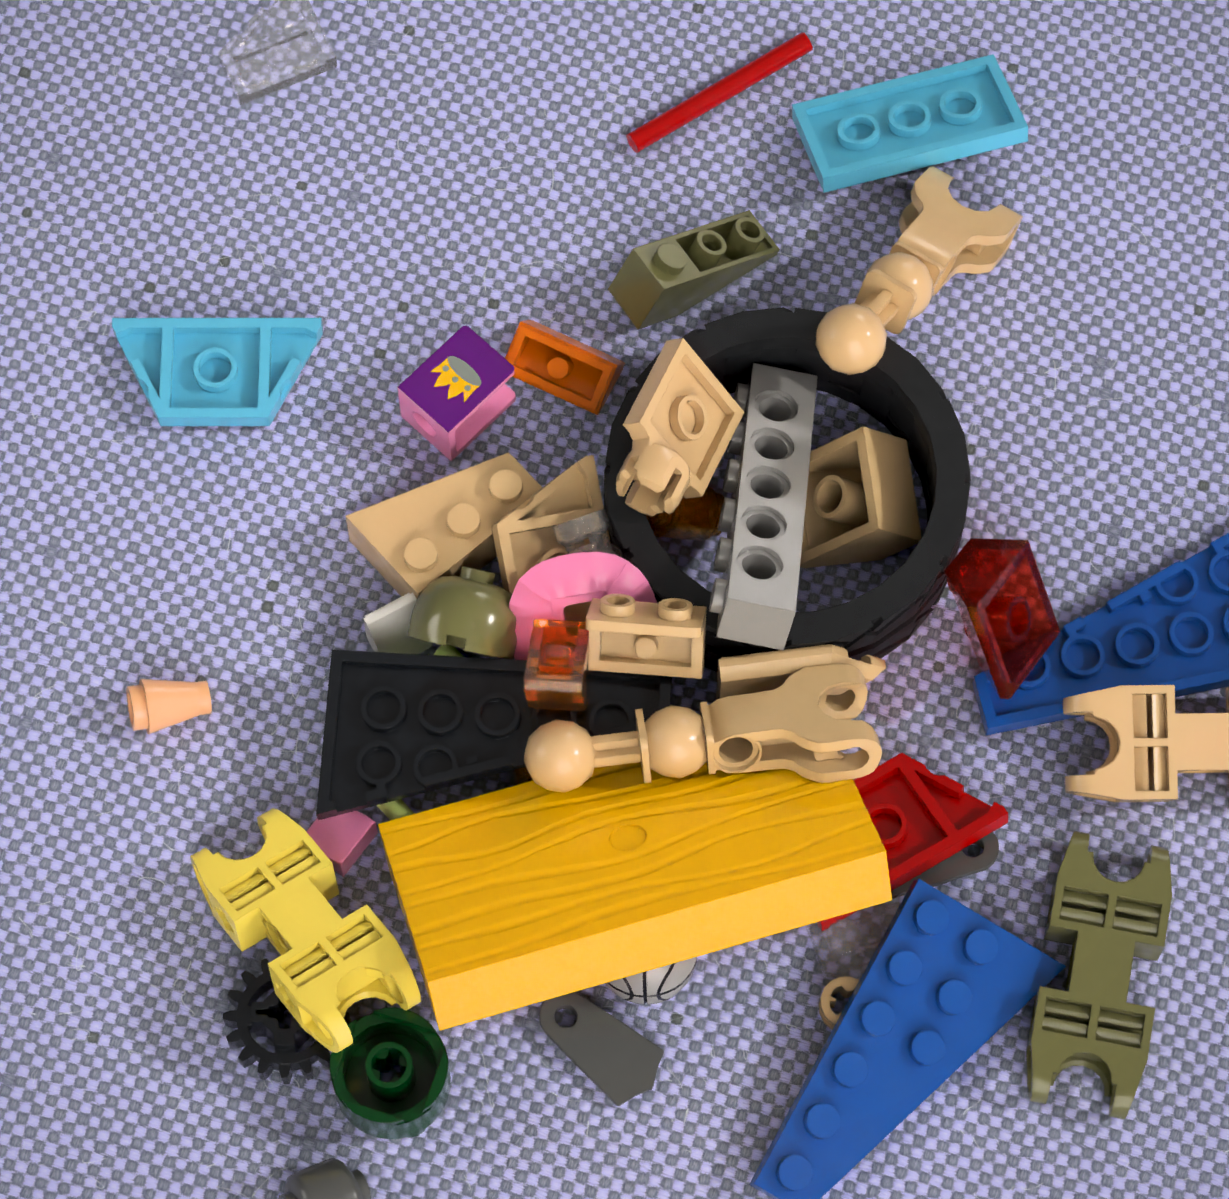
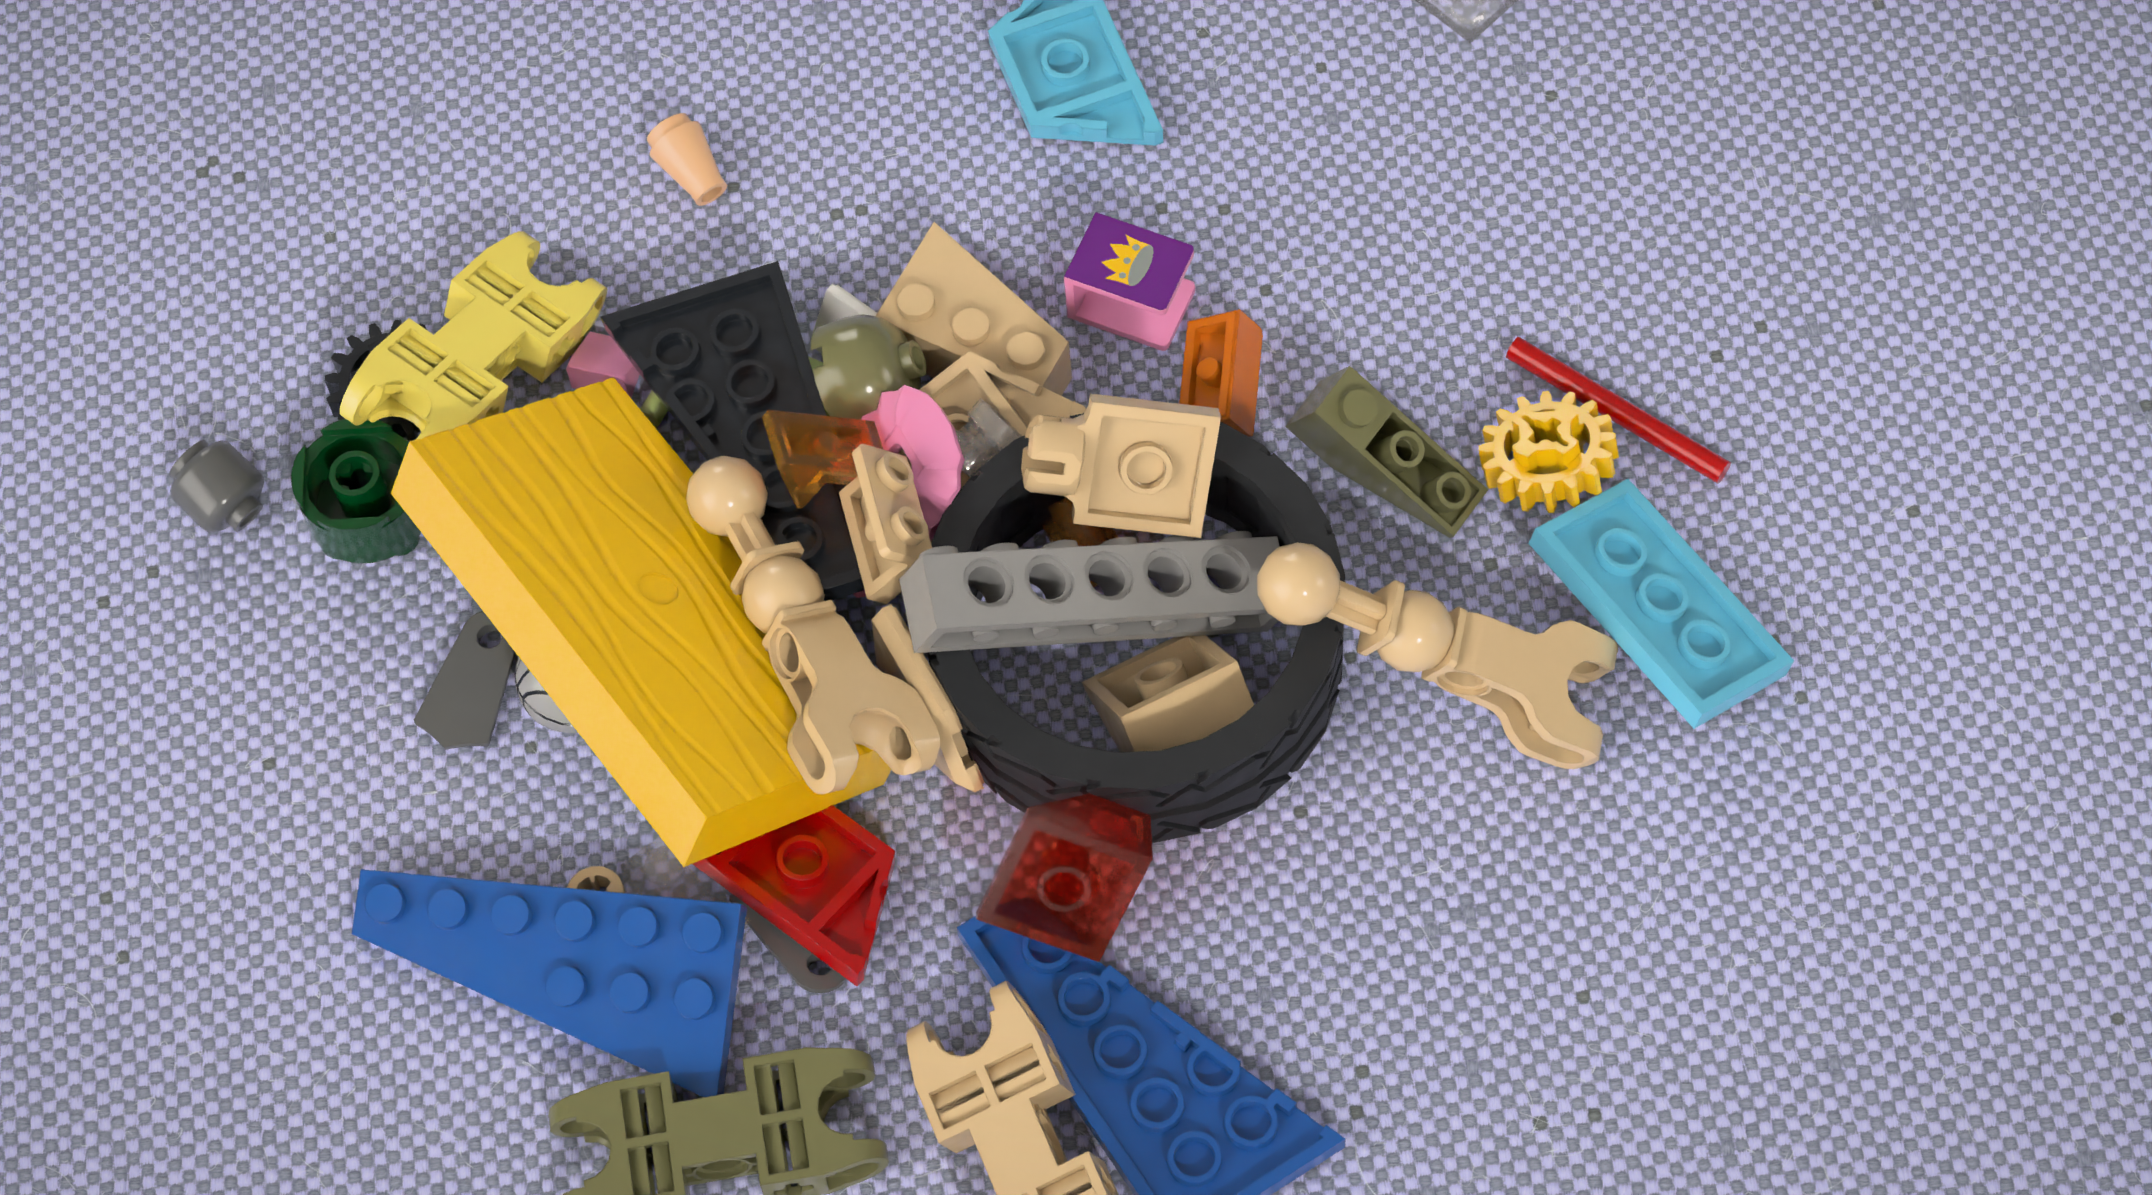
camera: 75 degrees right, 5 degrees down
(773, 151) = (1548, 451): none -> yellow gear

